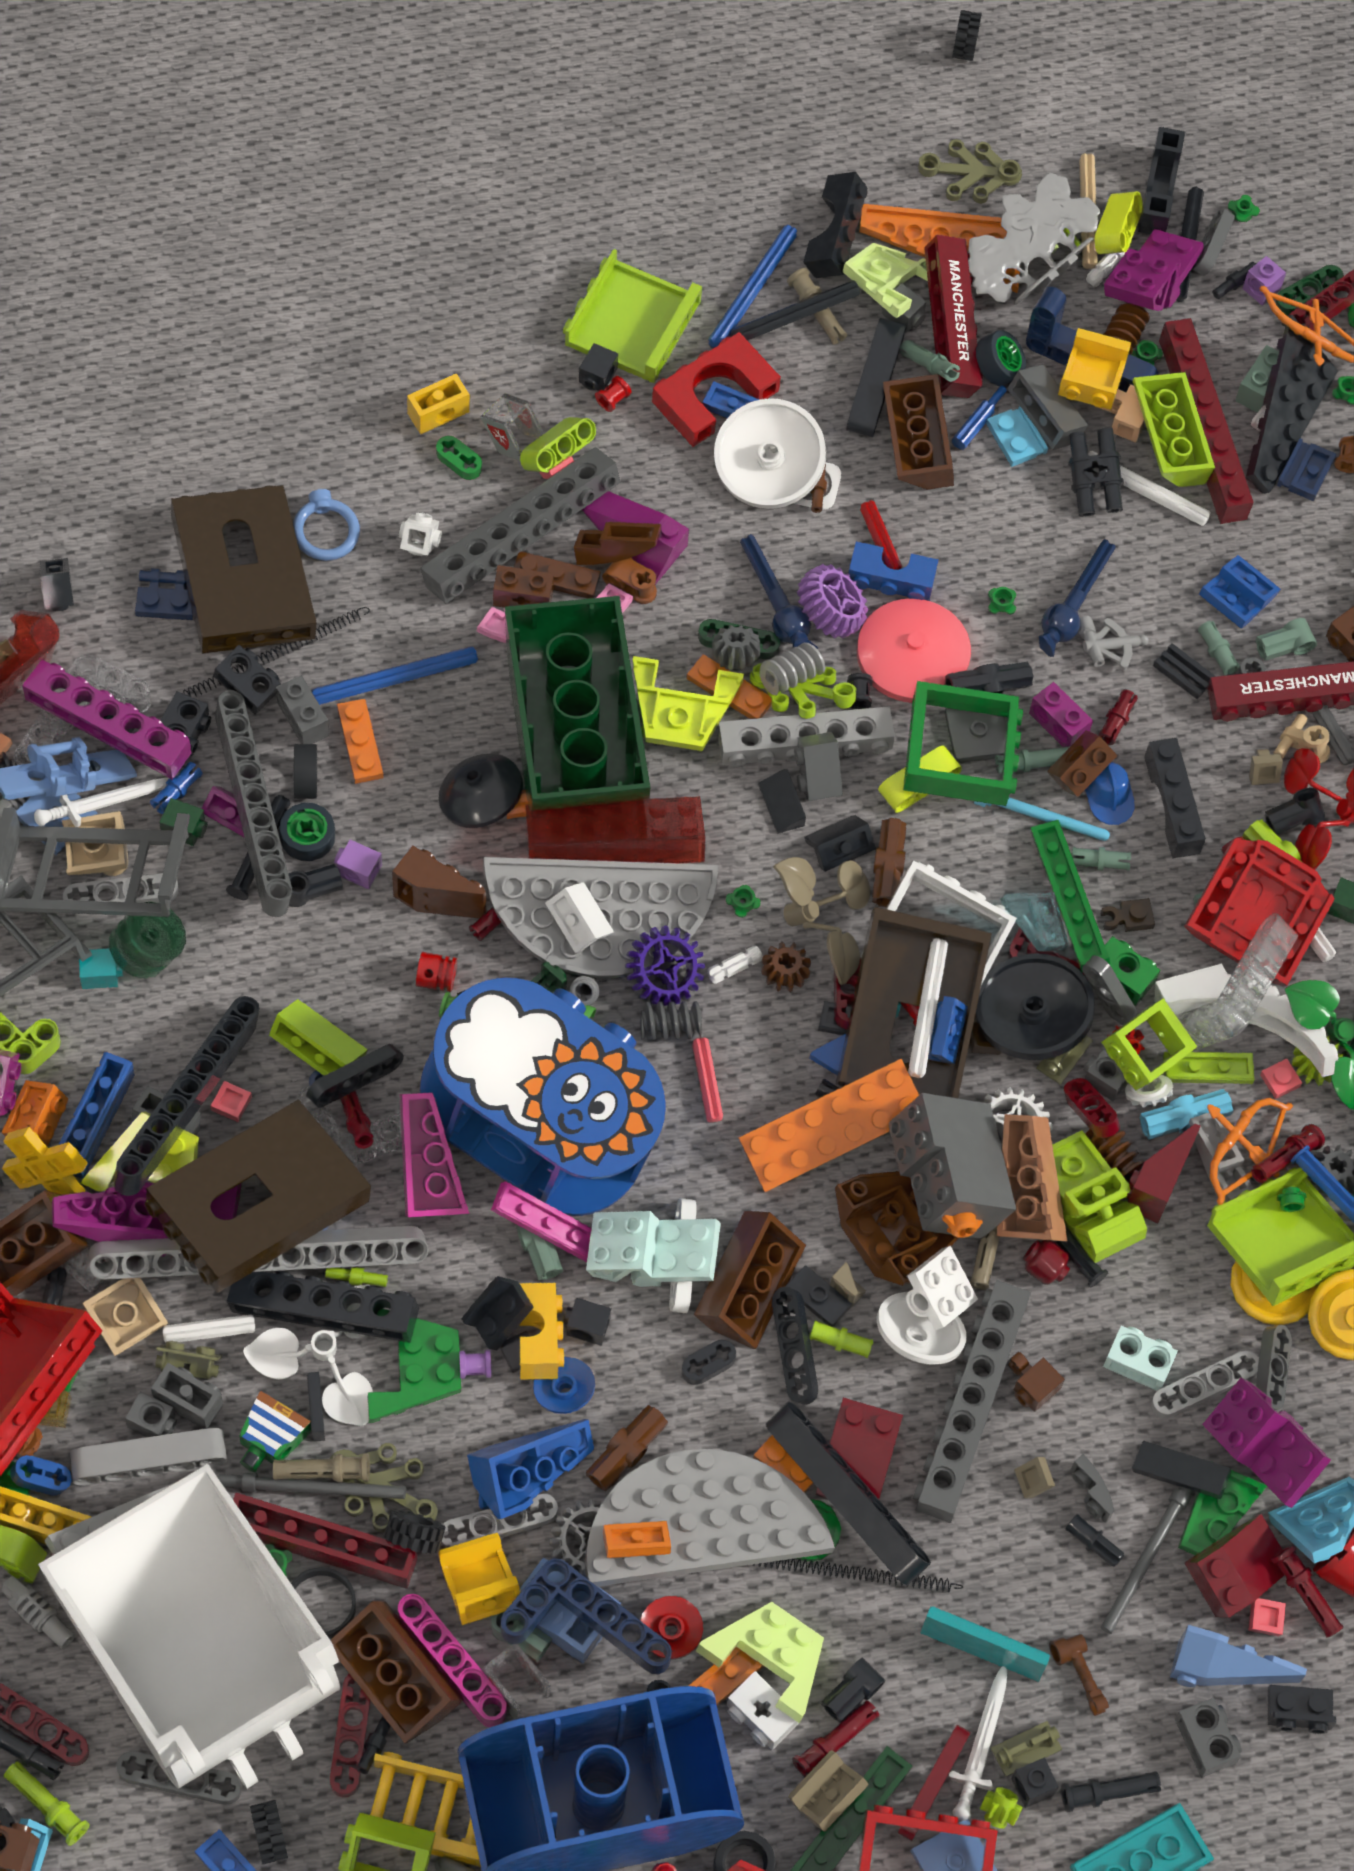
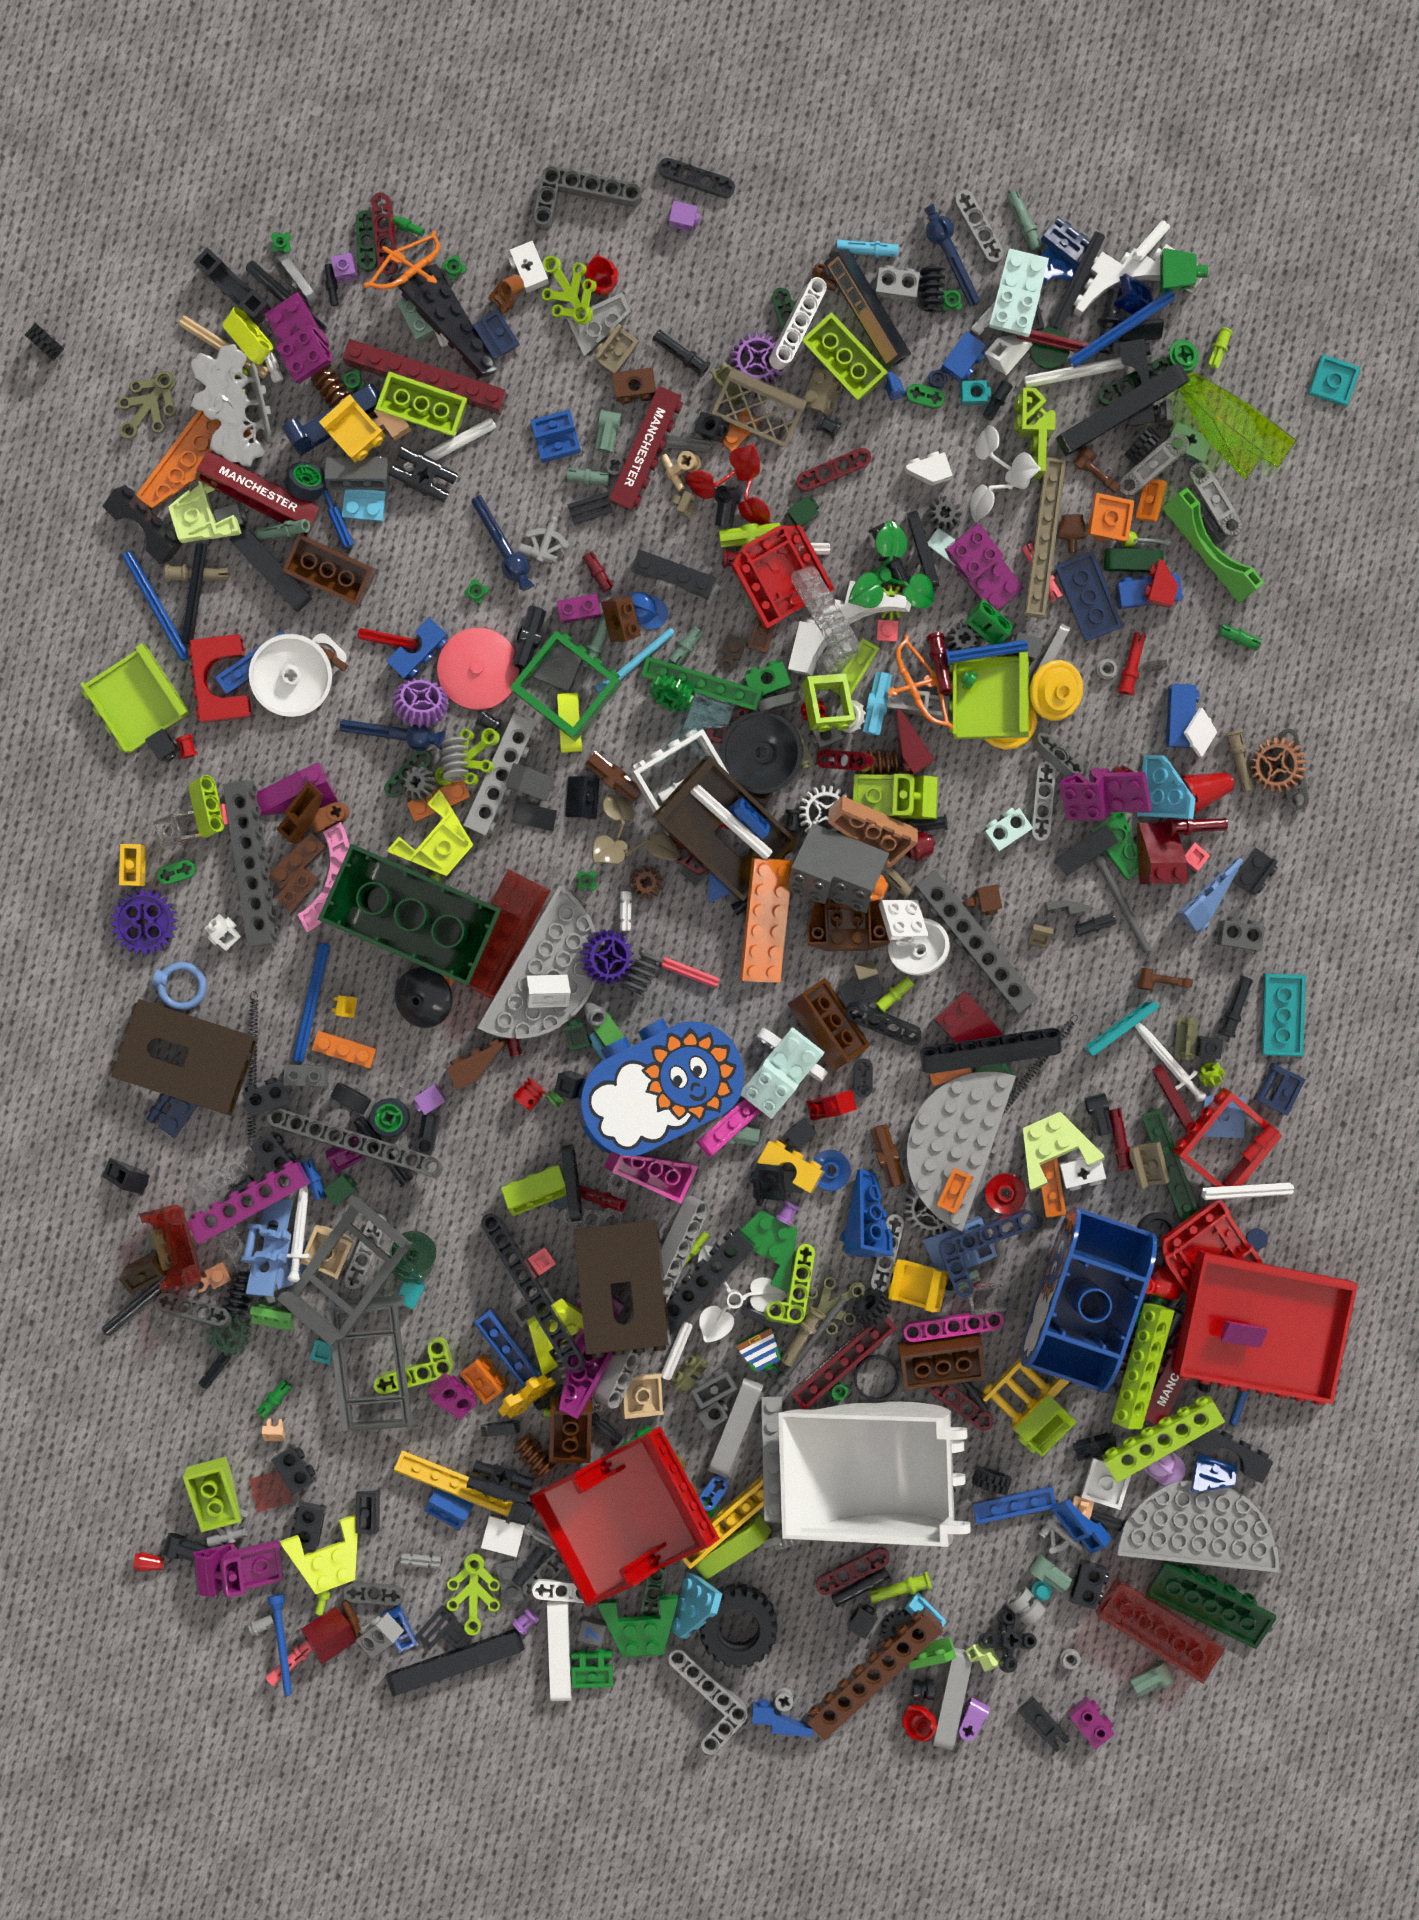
camera: 50 degrees left, 25 degrees up
(378, 451) = (125, 922): none -> dark purple gear
(387, 1419) = (795, 1283): none -> lime beam
(414, 712) = (345, 1006): none -> yellow tile
(649, 1340) = (831, 1105): none -> red slope
(978, 1091) = (793, 820): none -> black bush
(1033, 864) = (671, 693): none -> green gear
(1172, 937) = (761, 637): none -> reddish brown plate

